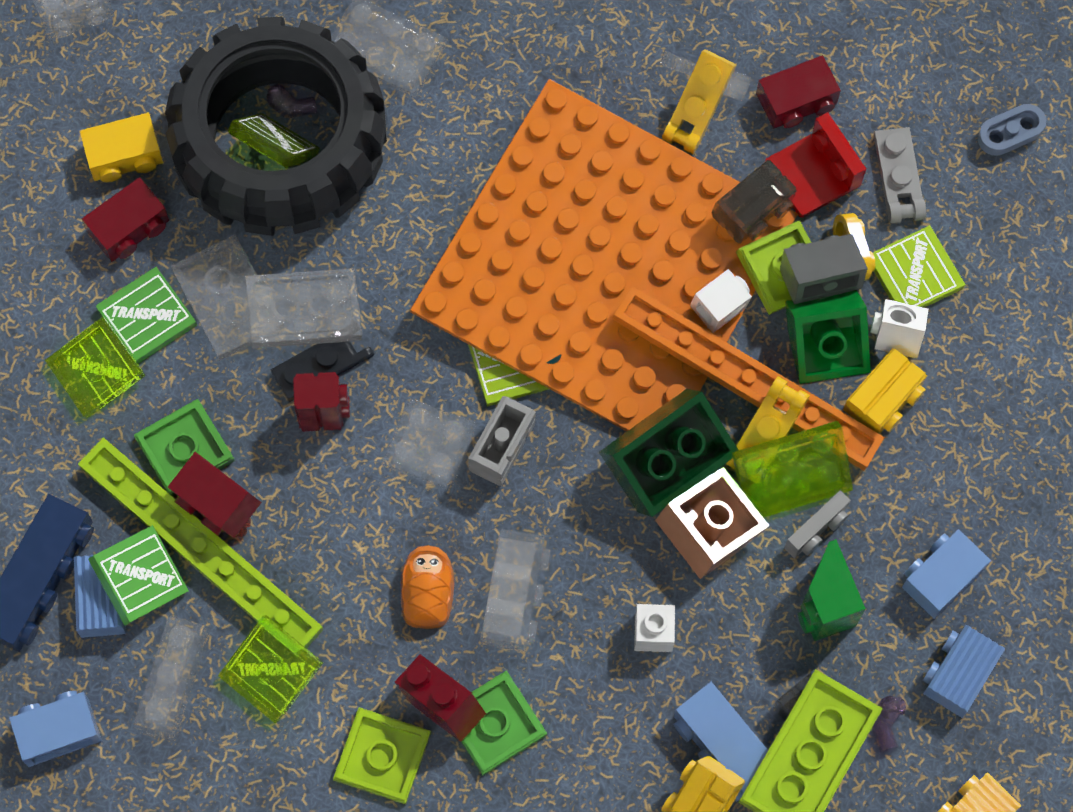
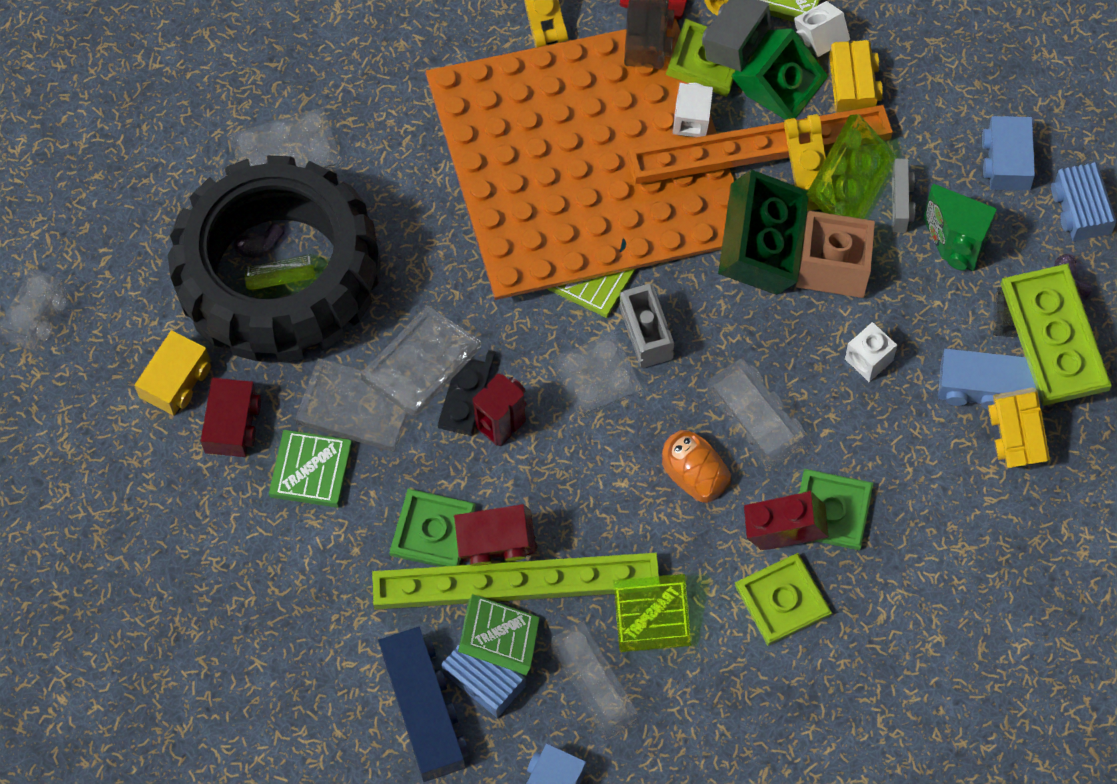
camera: 40 degrees left, 5 degrees down
(95, 367) = (313, 533): clear neon green tile -> none

